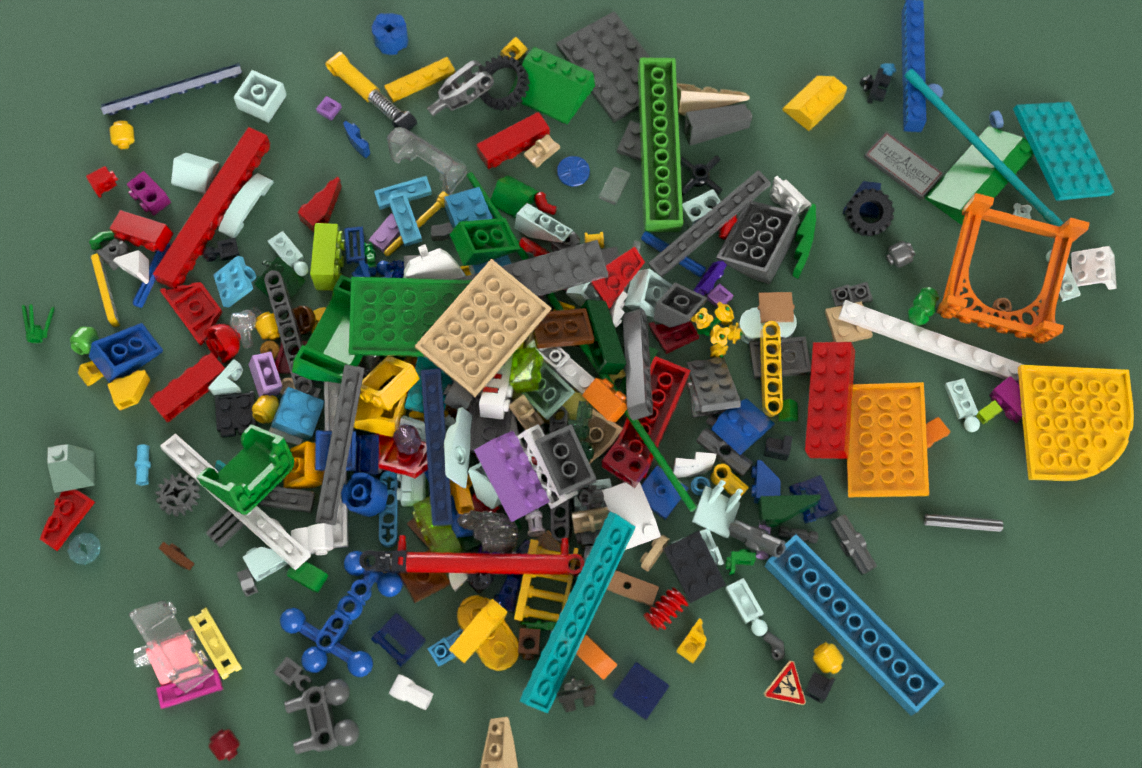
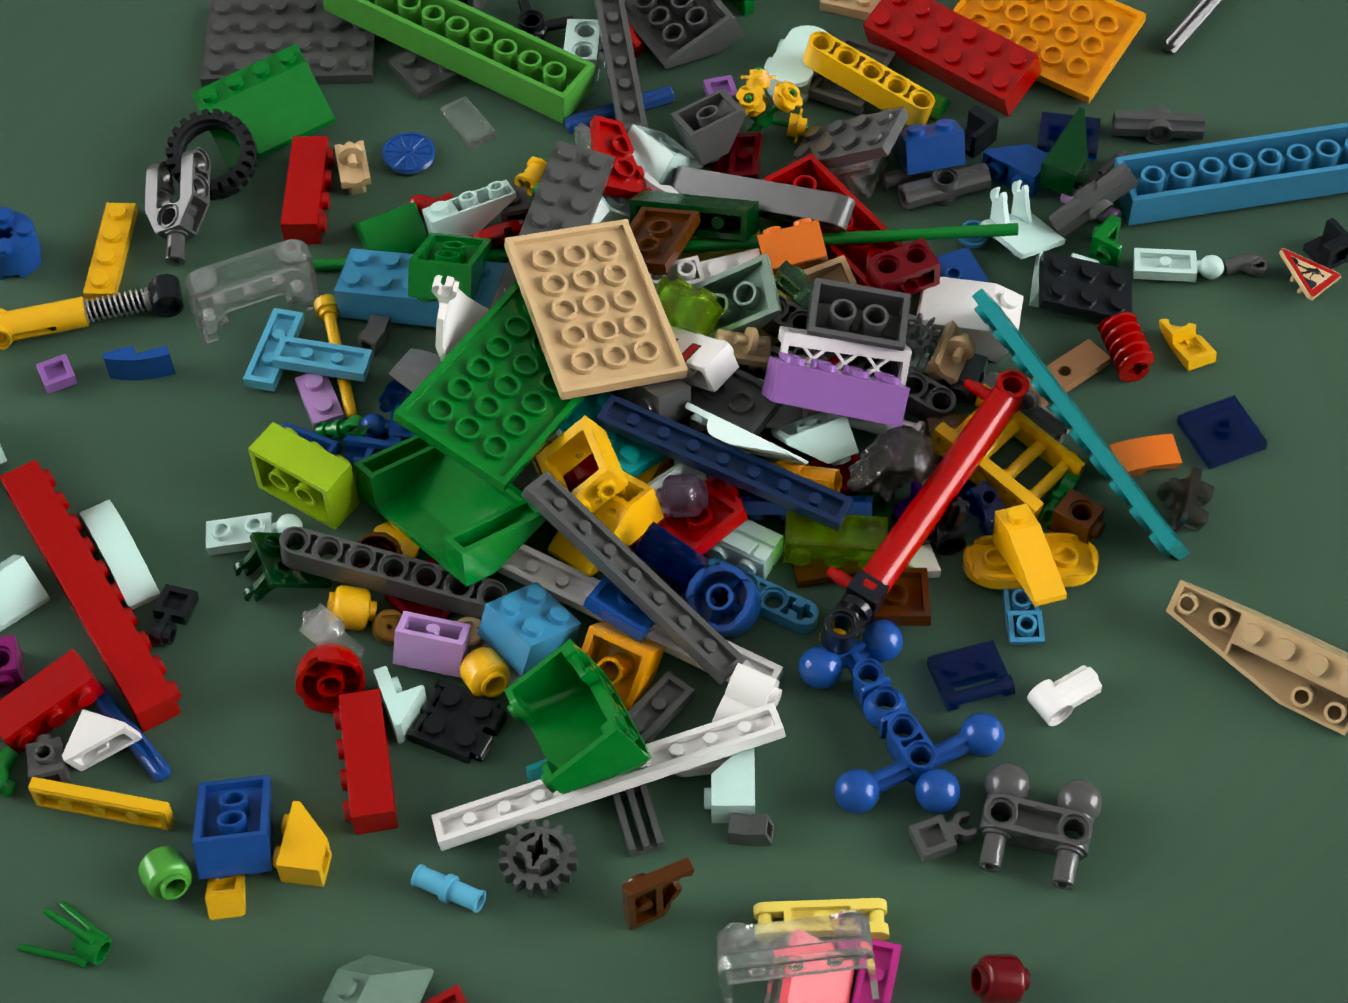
camera: 55 degrees left, 15 degrees down
(194, 308) = (236, 695): red wing -> none
(234, 281) = (240, 616): medium azure plate -> none
(308, 576) = (803, 742): green beam -> none
(321, 205) = (213, 455): red slope -> none
(516, 47) = (165, 126): yellow brick -> none
(650, 558) = (1038, 323): tan plate -> none
(692, 467) = (945, 212): white slope -> none
(708, 280) = (685, 82): dark purple plate -> none
(732, 481) = (976, 202): yellow piece -> none
(776, 307) = (785, 36): medium nougat piece -> none
(828, 658) = (1296, 217): yellow head -> none

